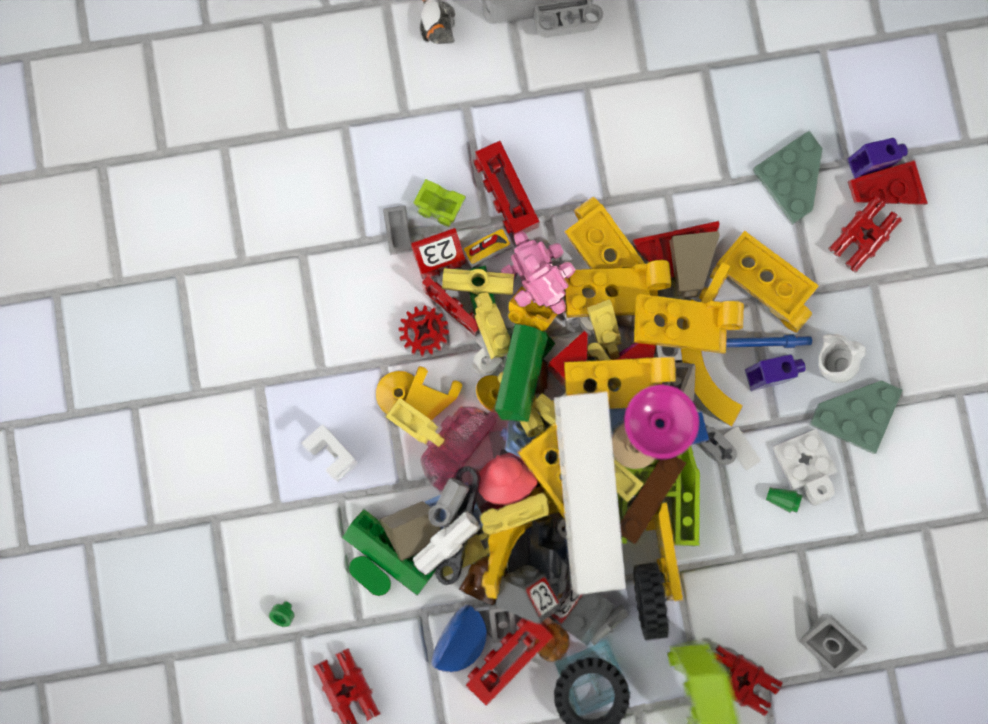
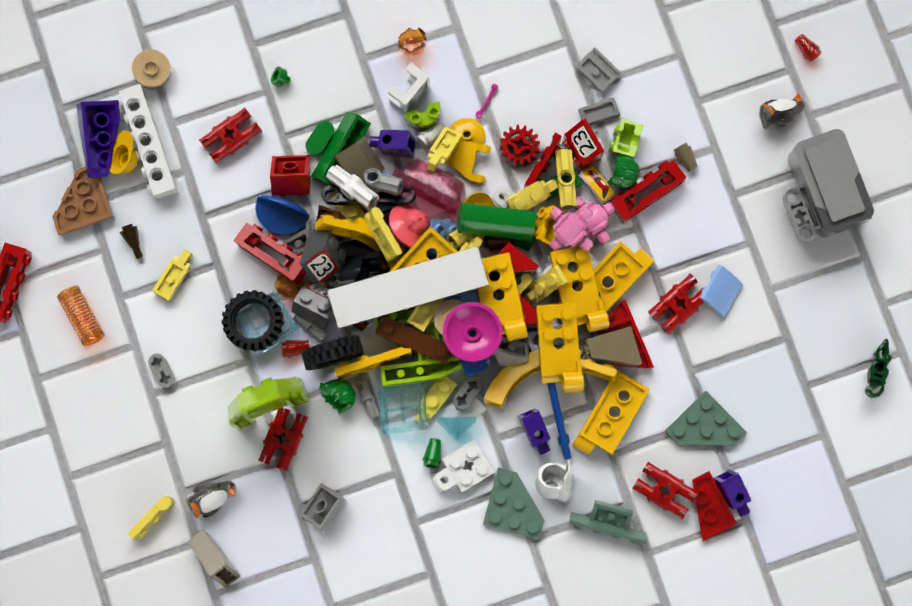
camera: 85 degrees right, 0 degrees up
(268, 439) = (412, 41): none -> clear orange hair
(346, 221) = (598, 70): none -> light grey plate
(372, 441) = (423, 120): none -> lime cylinder
(373, 373) = (479, 114): none -> dark pink hinge
(392, 437) = (429, 136): none -> white cone
(398, 474) = (394, 143): none -> dark purple torso
(411, 620) = (290, 175): none -> red slope
(470, 138) = (685, 156): none -> dark tan cone
(481, 209) = (625, 172): none -> green hair
(630, 649) = (293, 347): none -> clear red cone
(641, 126) = (721, 290): none -> light blue slope
(651, 168) = (669, 302): none -> red pin
(698, 601) = (338, 394): none -> green hair
(708, 567) = (368, 399): none -> light grey axle
(719, 487) = (438, 395): none -> light yellow hinge
(727, 526) = (402, 408): none -> clear light blue piece
(755, 464) = (456, 425): none -> clear light blue slope
(892, 305) = (609, 520): none -> sand green bracket

